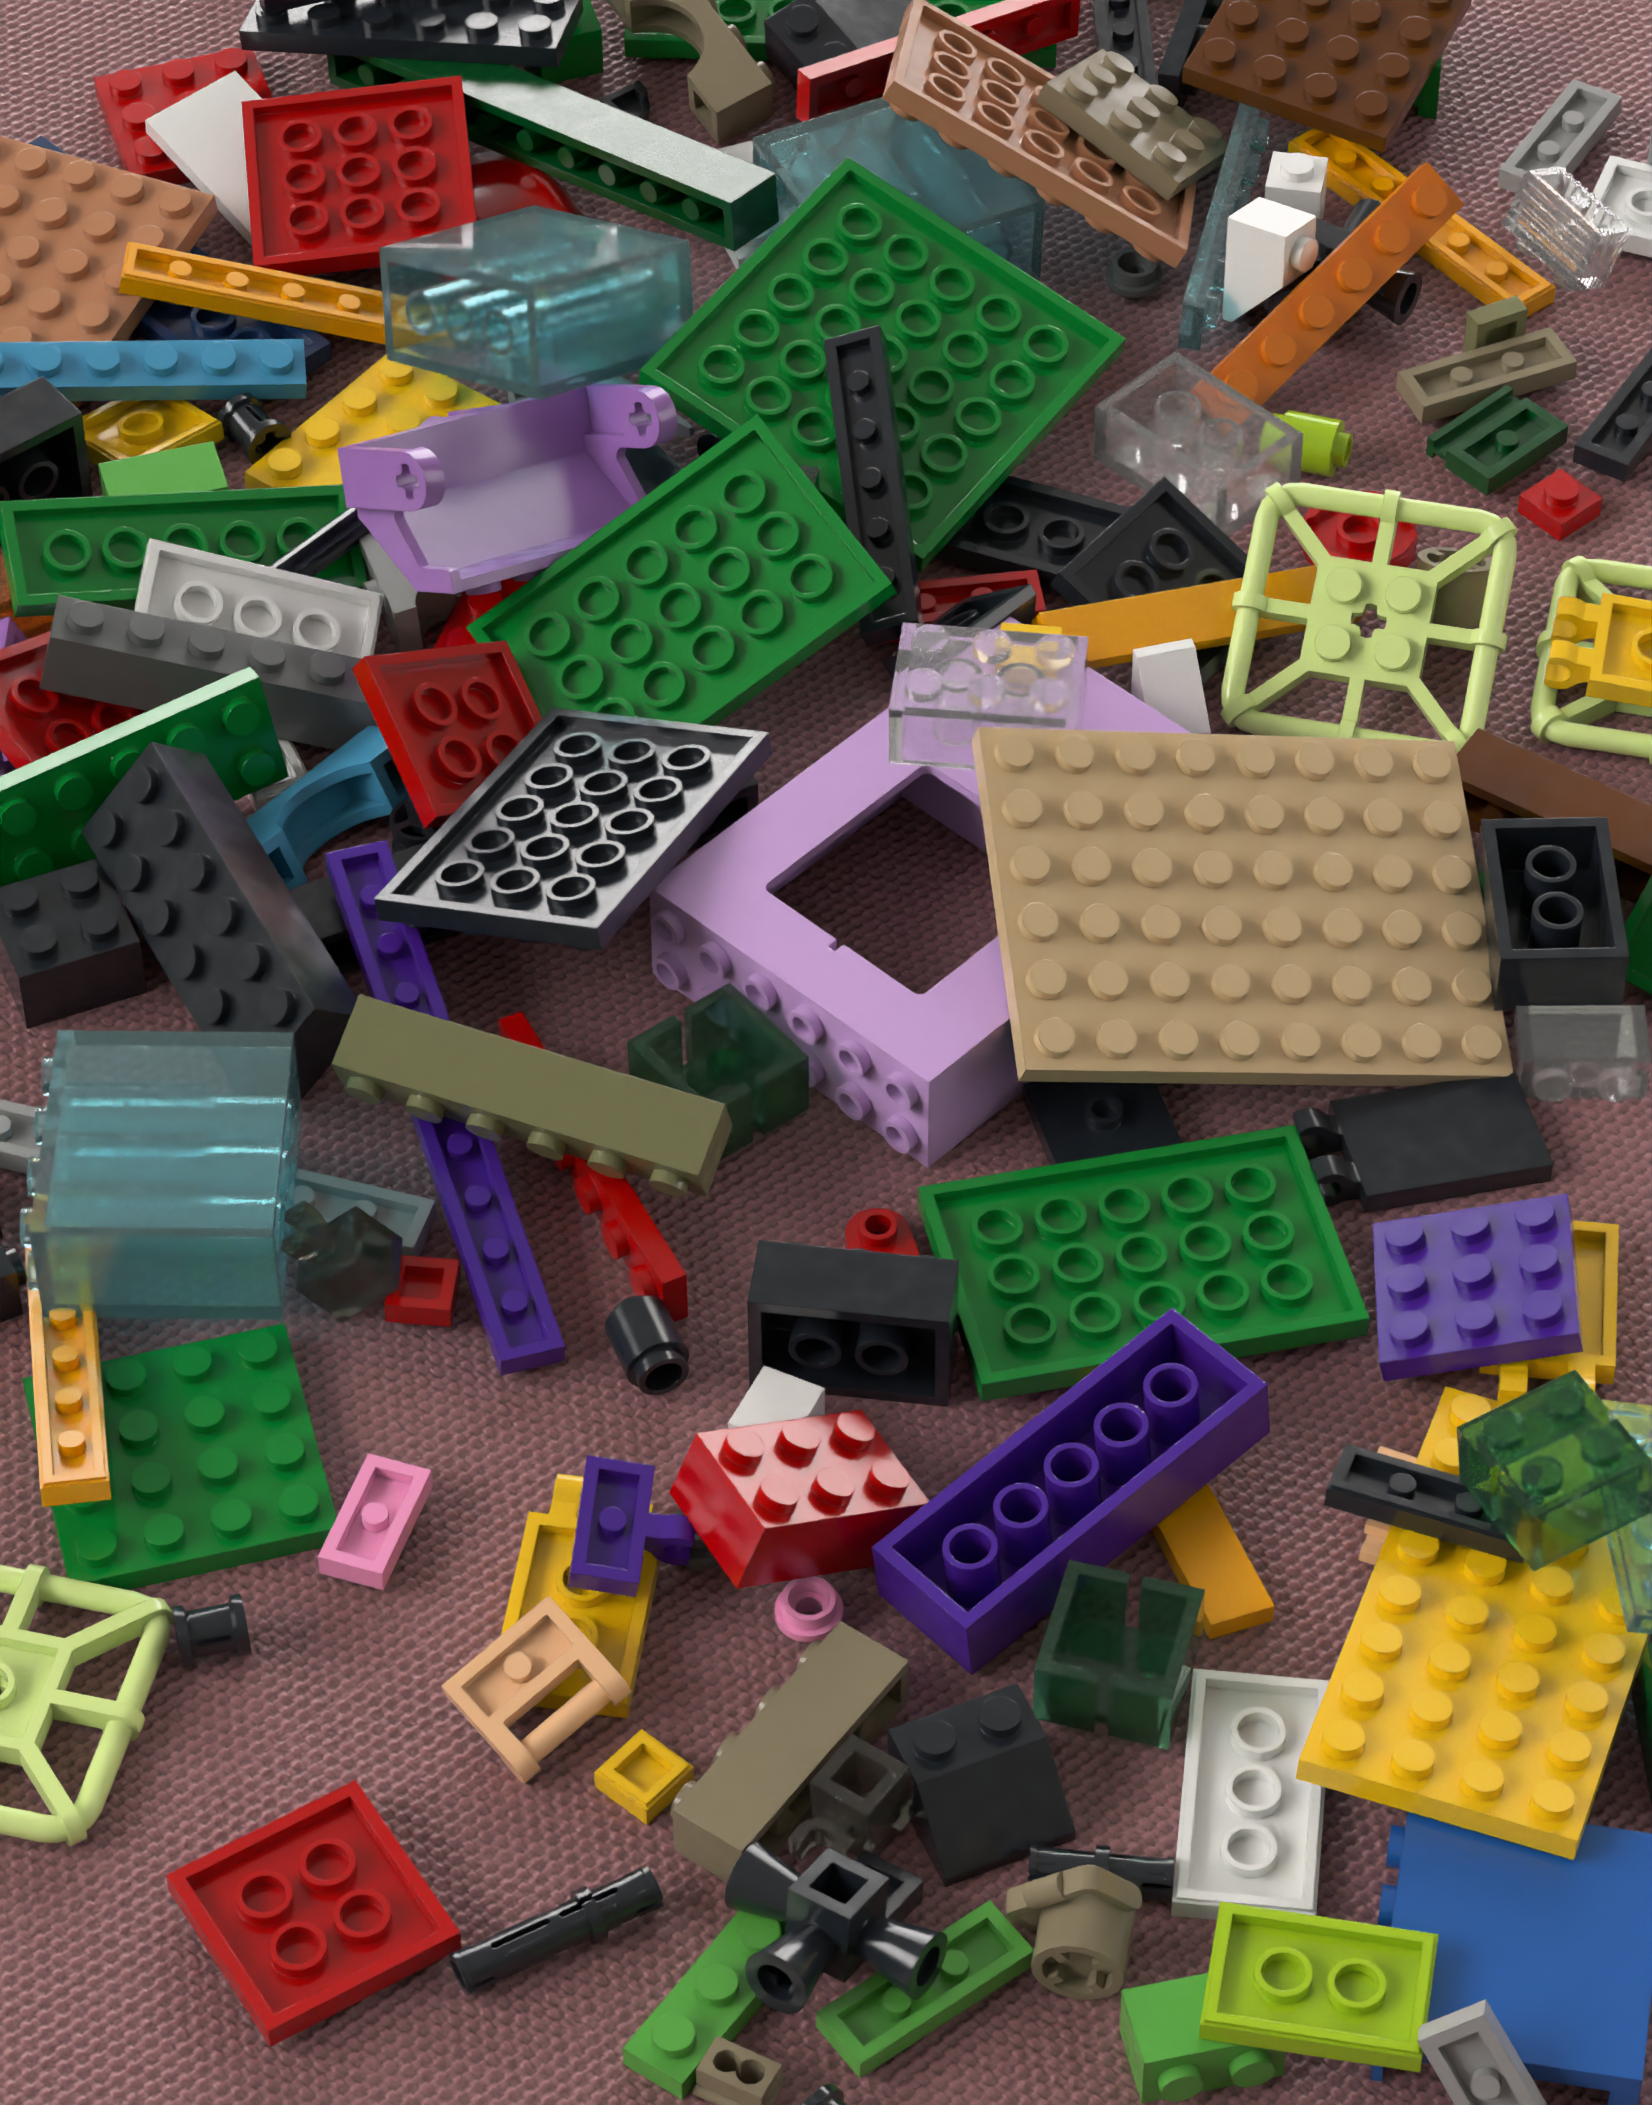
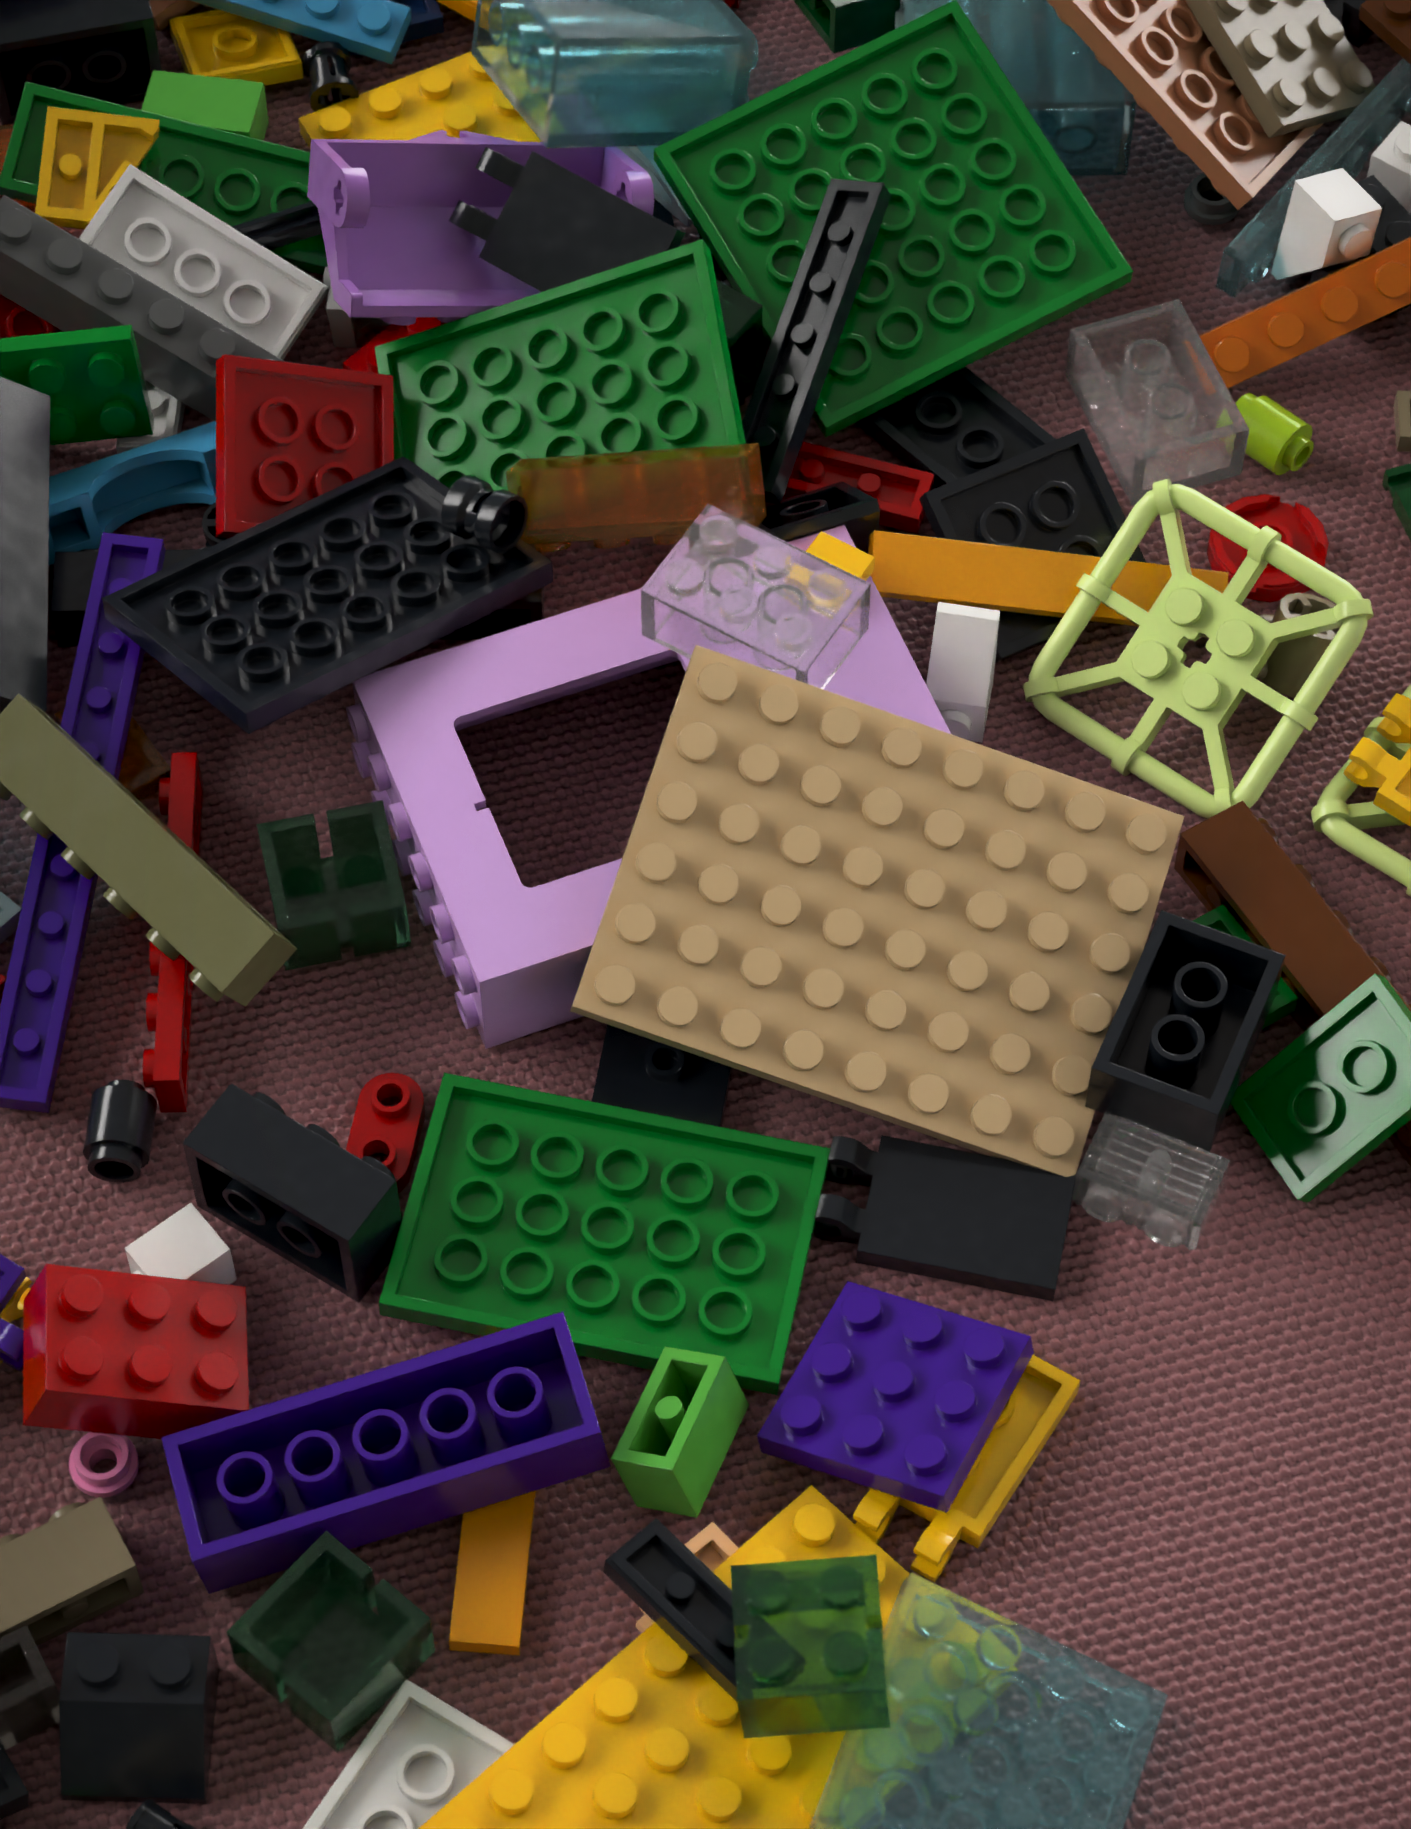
camera: 25 degrees right, 10 degrees up
(100, 548) = (85, 159): none -> yellow wing
(596, 457) = (559, 224): none -> black tile
(687, 711) = (489, 516): none -> black wheel
(807, 653) = (635, 494): none -> clear orange brick
(1313, 1381) = (680, 1431): none -> bright green brick

